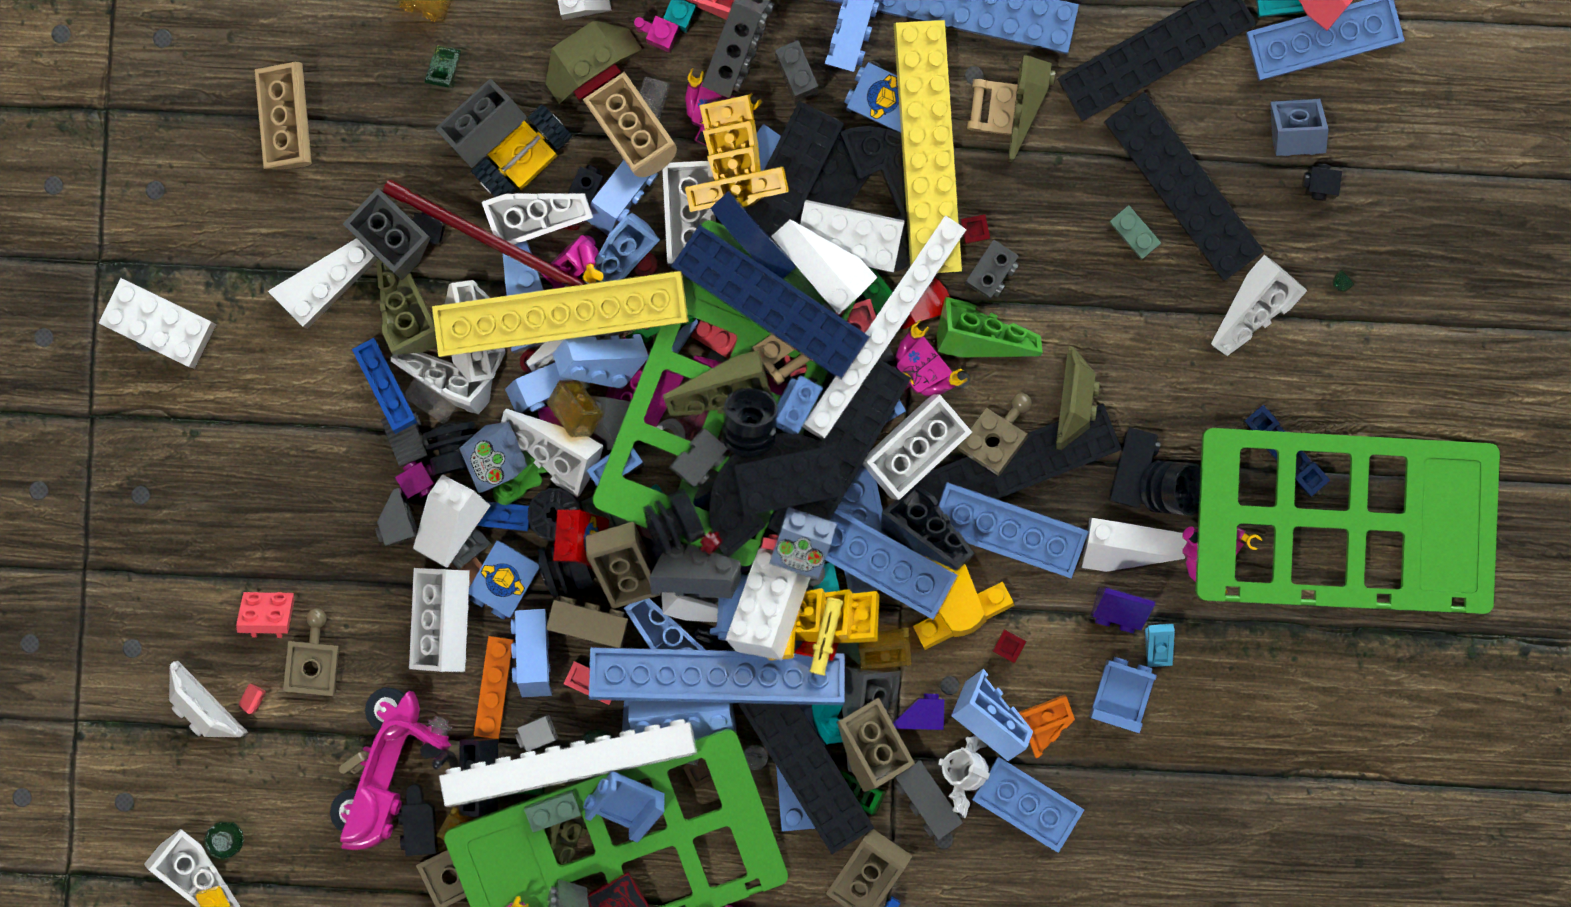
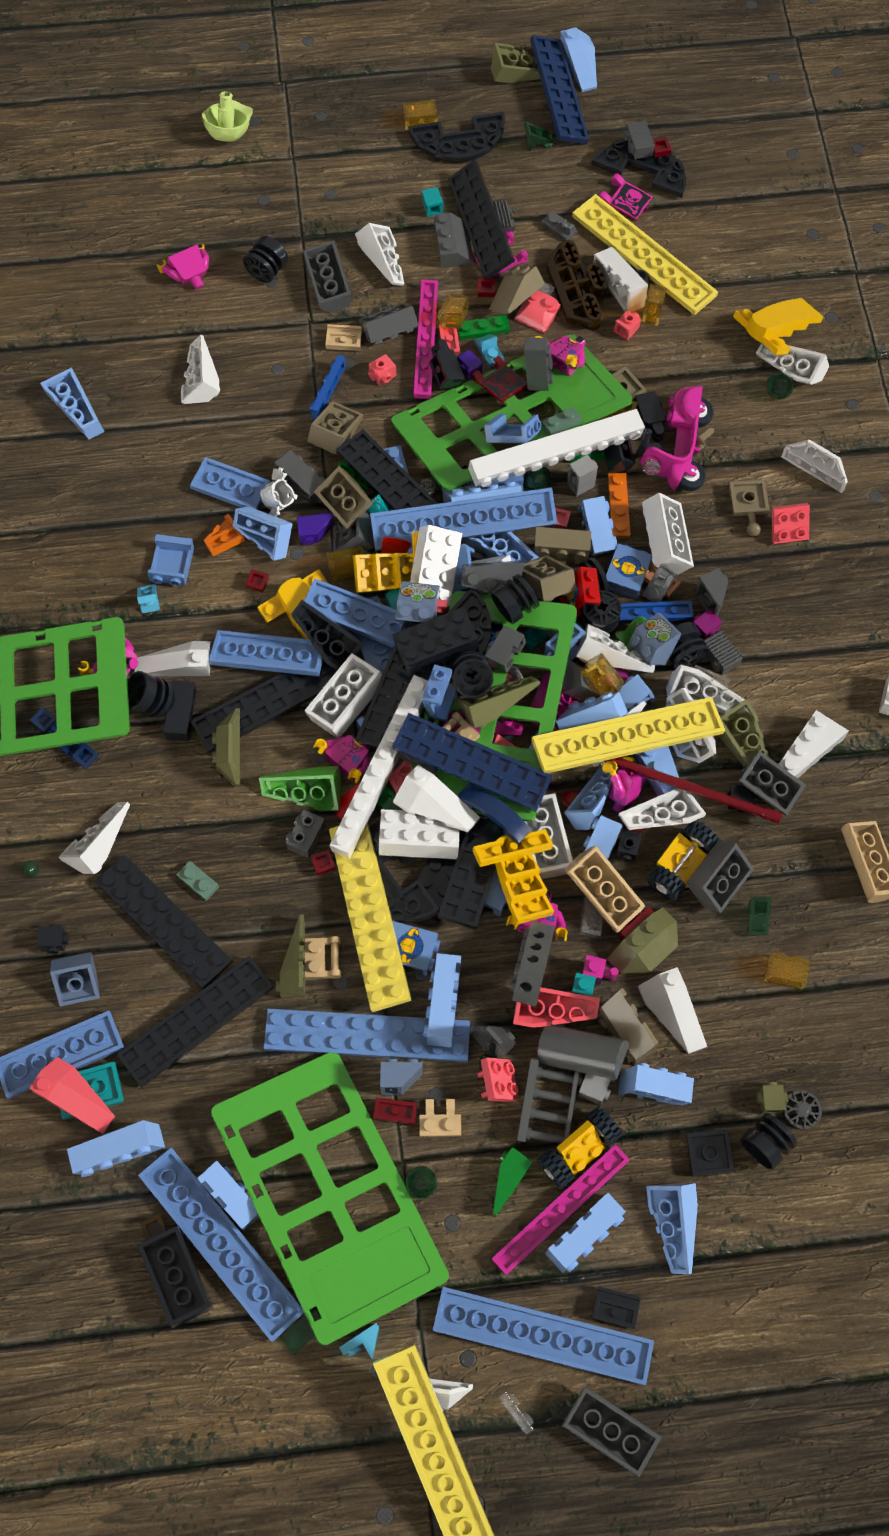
camera: 170 degrees right, 20 degrees down
(252, 698) = (785, 474): coral slope -> none
(384, 385) = (745, 680): blue plate -> none
(448, 520) = (676, 593): white slope -> none
(710, 542) = (484, 592): dark red plate -> none
(796, 72) = (482, 951): dark grey brick -> none
(832, 607) = (388, 568): light yellow pin -> none
(993, 425) = (275, 715): dark tan plate -> none
(1122, 609) = (177, 614): dark purple slope -> none

